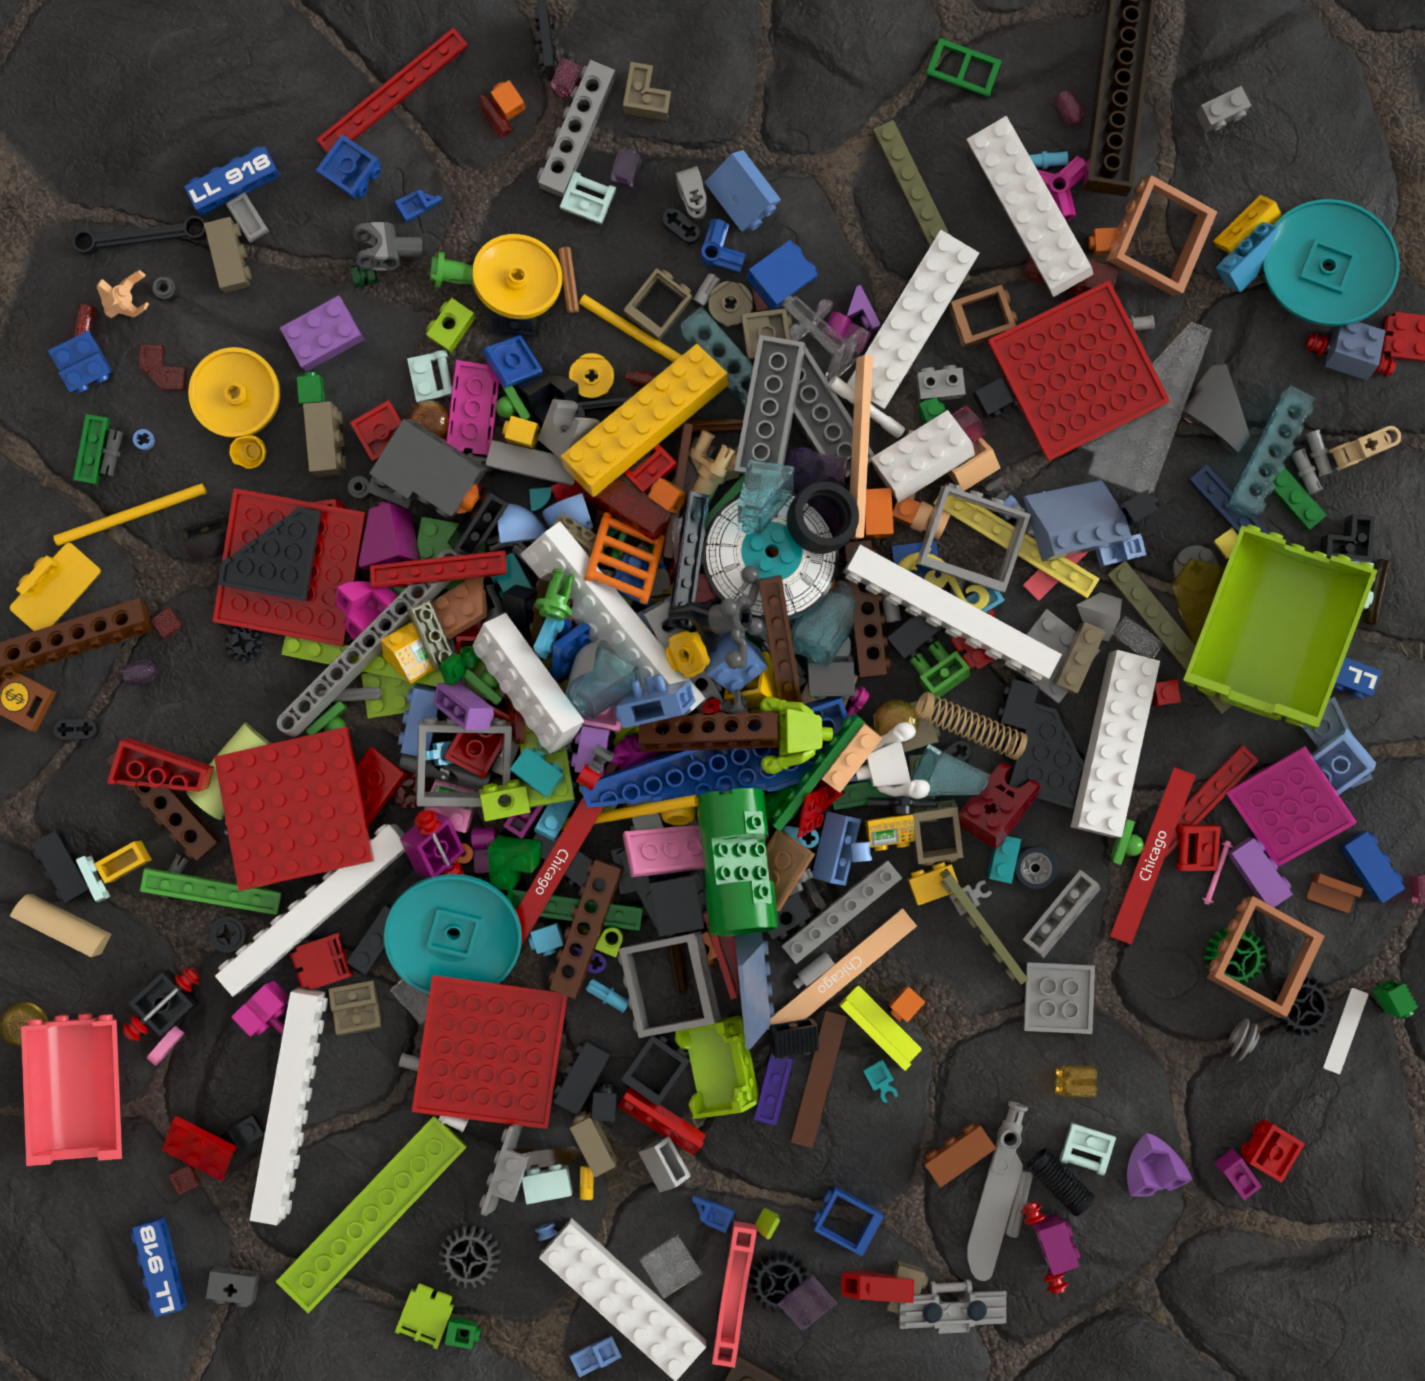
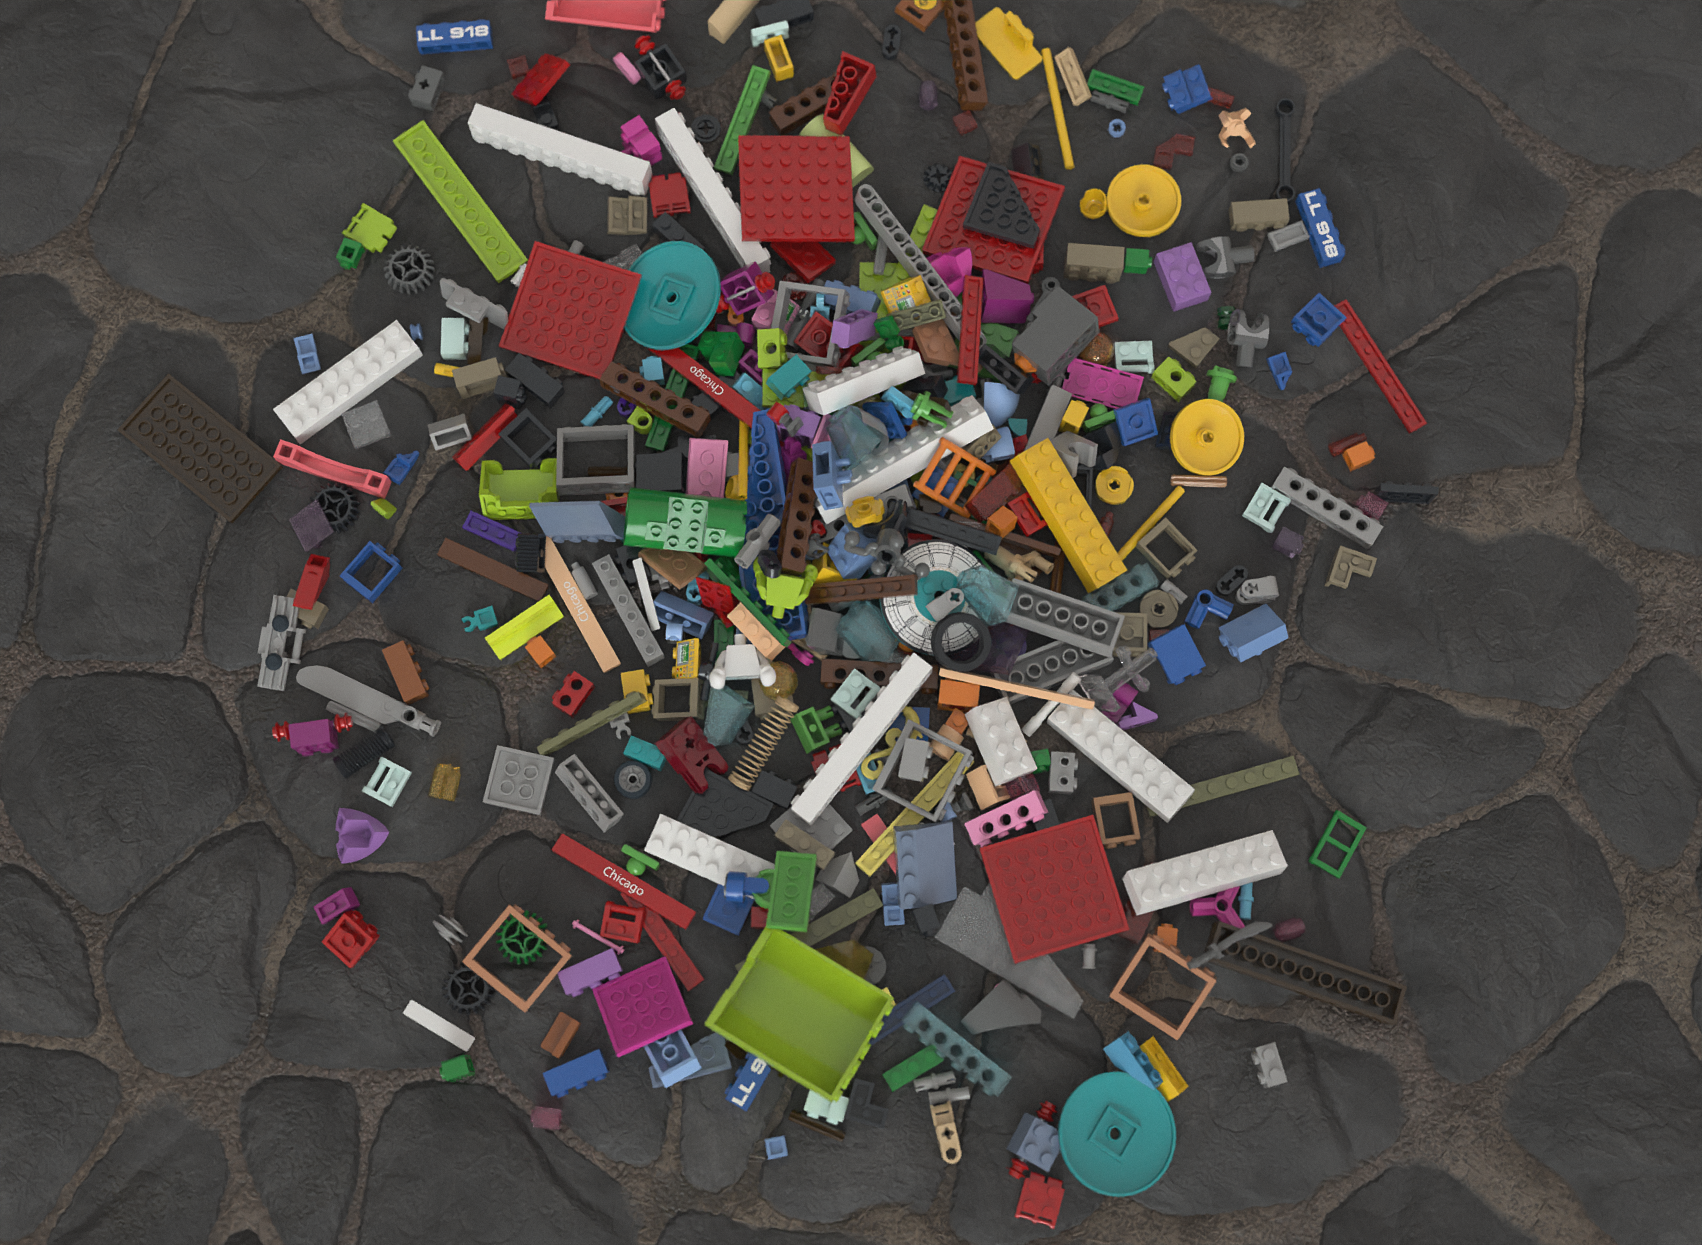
camera: 100 degrees right, 10 degrees down
(86, 501) = (1073, 76): none -> tan plate
(287, 287) = (1224, 256): none -> dark grey connector
(404, 307) = (1194, 346): none -> dark tan wing
(755, 776) = (757, 540): none -> light grey piece
(773, 748) = (769, 564): none -> black beam
(785, 544) = (943, 605): none -> light grey piece
(822, 893) = (646, 594): none -> white sticker
(892, 636) = (851, 690): none -> light aqua plate
(952, 951) = (577, 697): none -> red brick
(968, 548) = (915, 760): none -> light grey piece
(1015, 597) = (863, 806): none -> dark grey pin
(1030, 461) = (977, 826): none -> bright pink brick
(1095, 149) = (1215, 950): none -> dark grey sword
(1143, 671) = (781, 890): none -> bright green plate
(1163, 733) = (727, 914): none -> blue tile
(1408, 632) = (776, 1147): none -> medium blue tile

